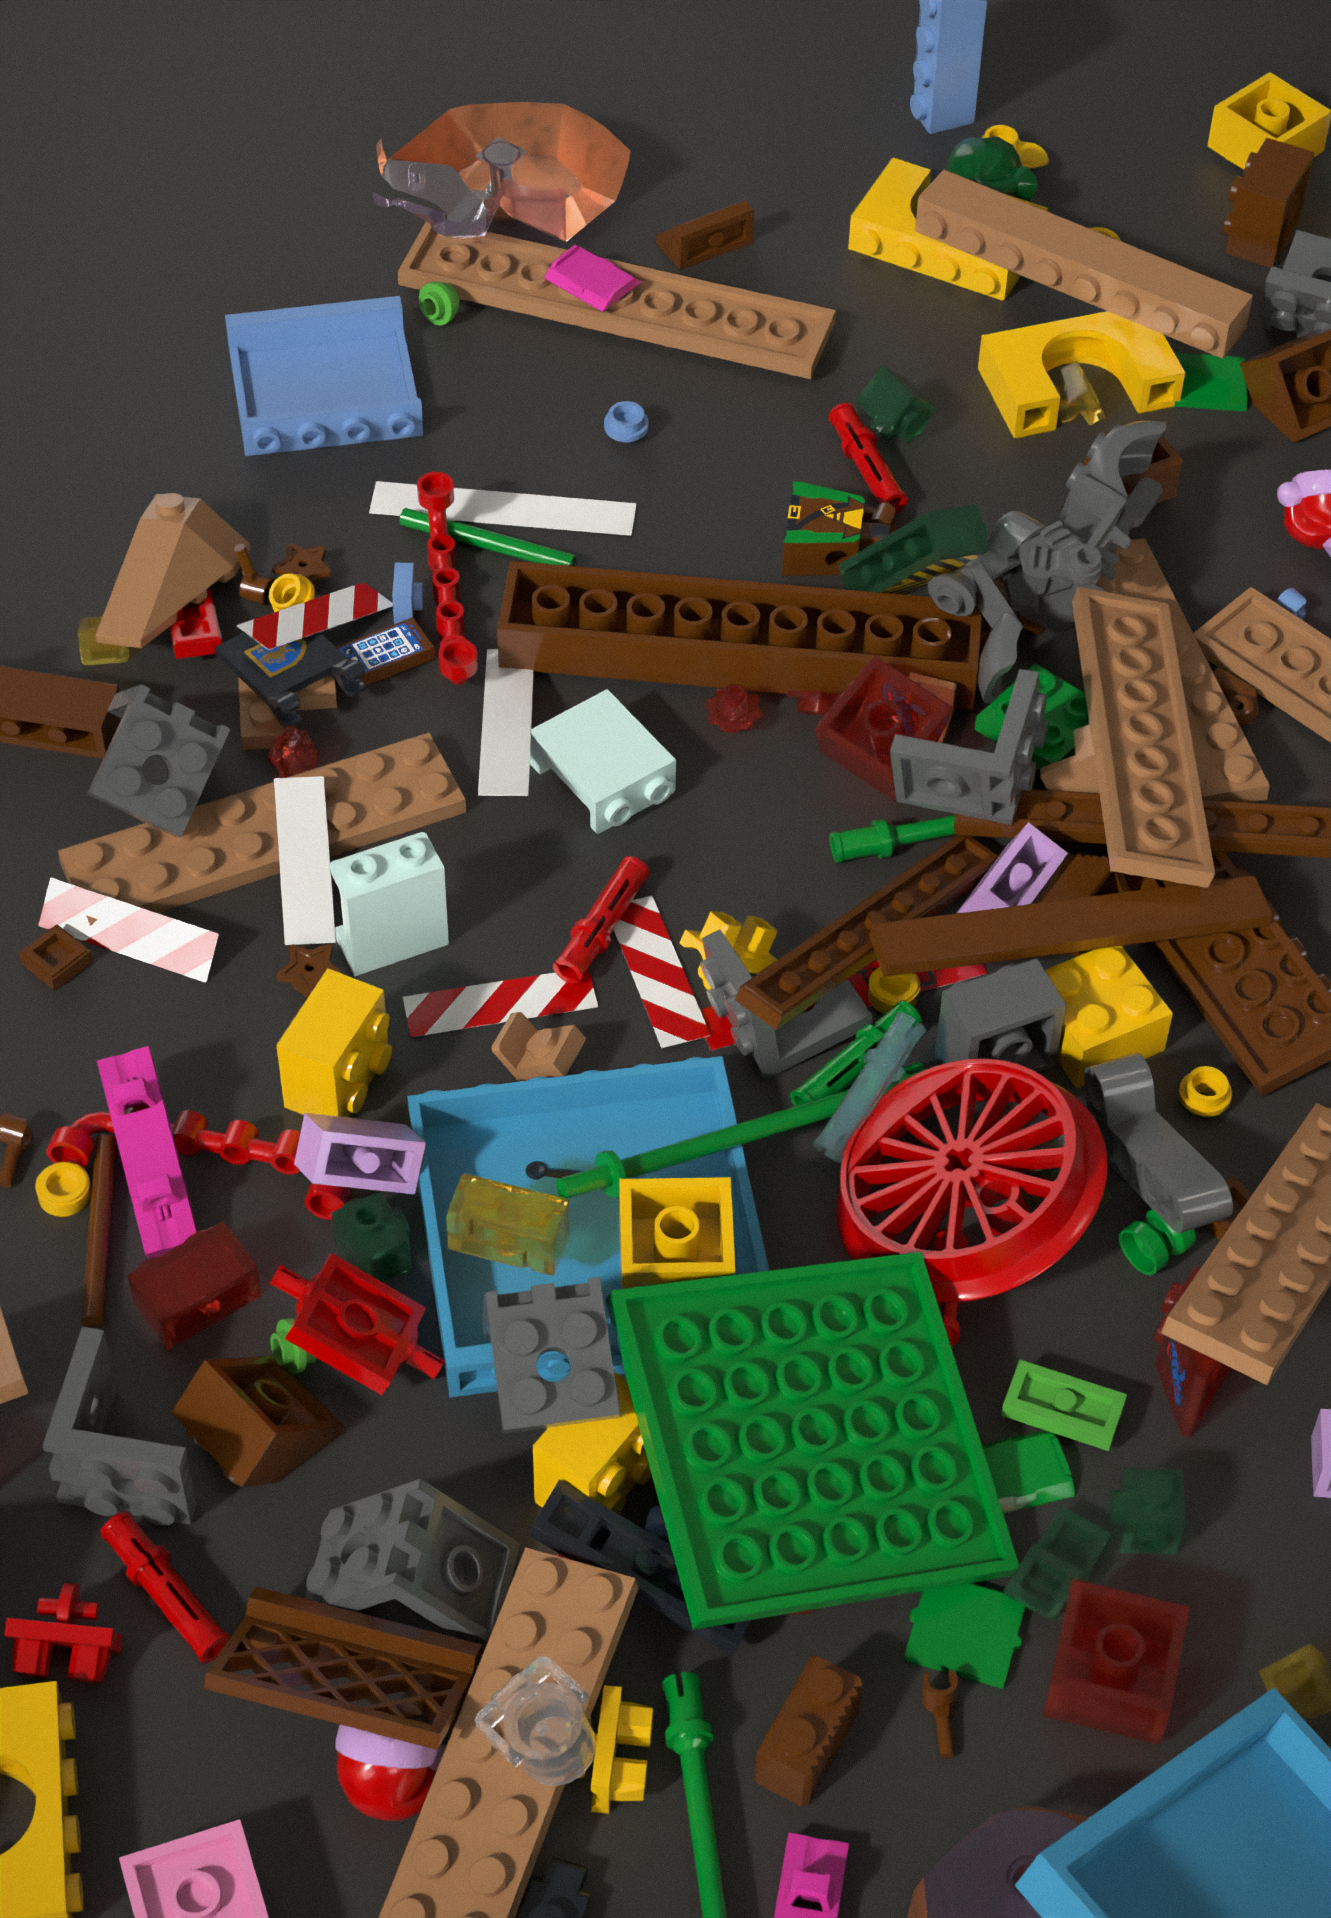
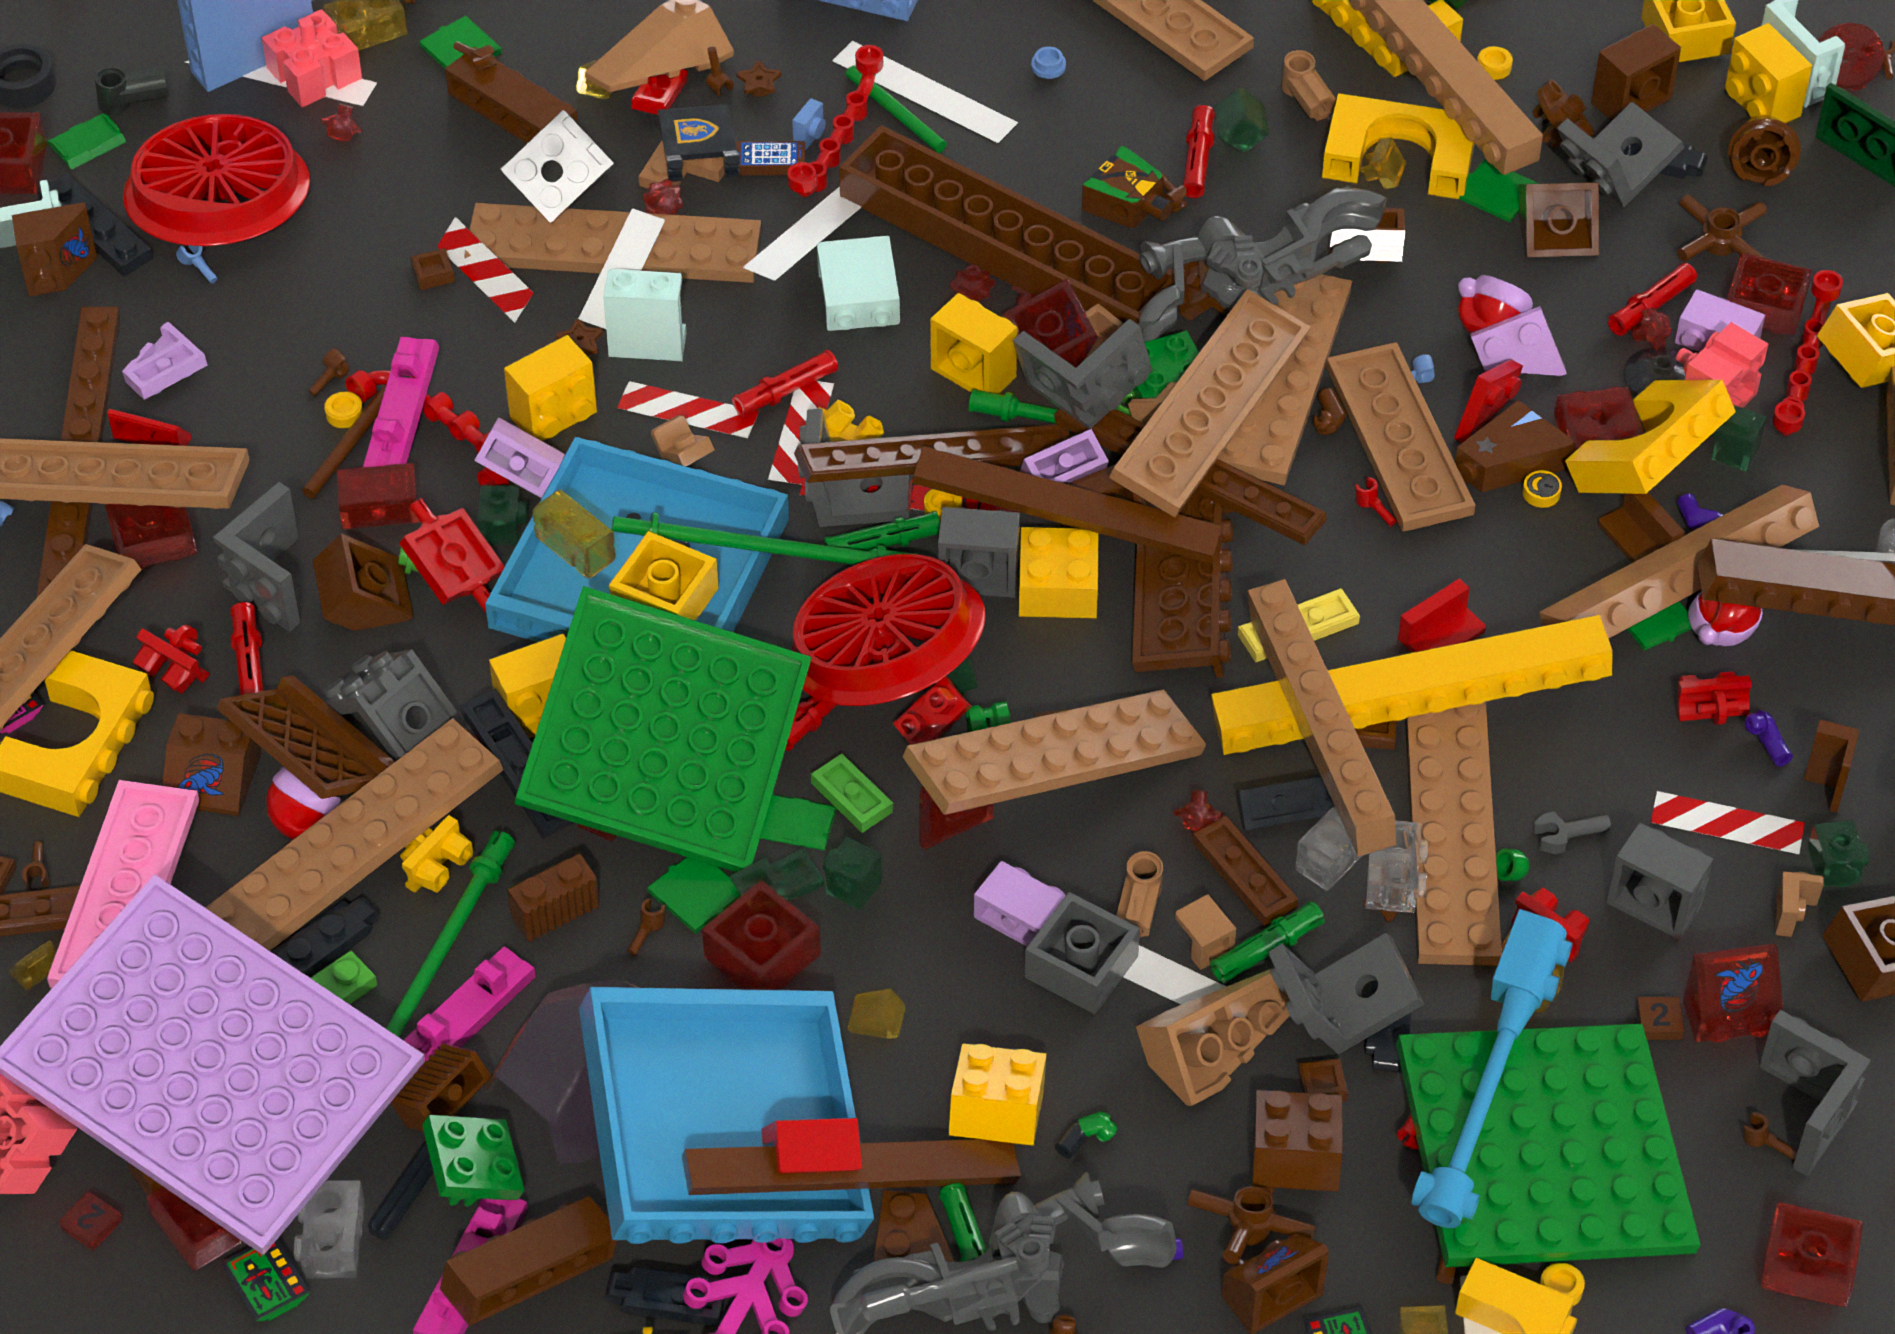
camera: 30 degrees right, 0 degrees up
(220, 1766) = (212, 760): none -> reddish brown slope
(290, 590) = (736, 95): yellow plate -> none
(315, 615) = (736, 114): sticker -> none
(541, 1724) = (382, 809): clear piece -> none
(542, 1321) = (531, 587): dark grey bracket -> none
(804, 781) = (973, 346): none -> yellow brick
(880, 1069) = (867, 548): clear light blue pin -> none
(918, 552) = (1147, 219): clear green brick -> none
(919, 338) = (1305, 84): none -> medium nougat piece
(1093, 1262) = (932, 713): none -> red hips
(1149, 1150) = (1017, 659): dark grey beam -> none
(1207, 1081) = (1096, 644): yellow plate -> none
(1217, 263) = (1555, 108): none -> reddish brown plate

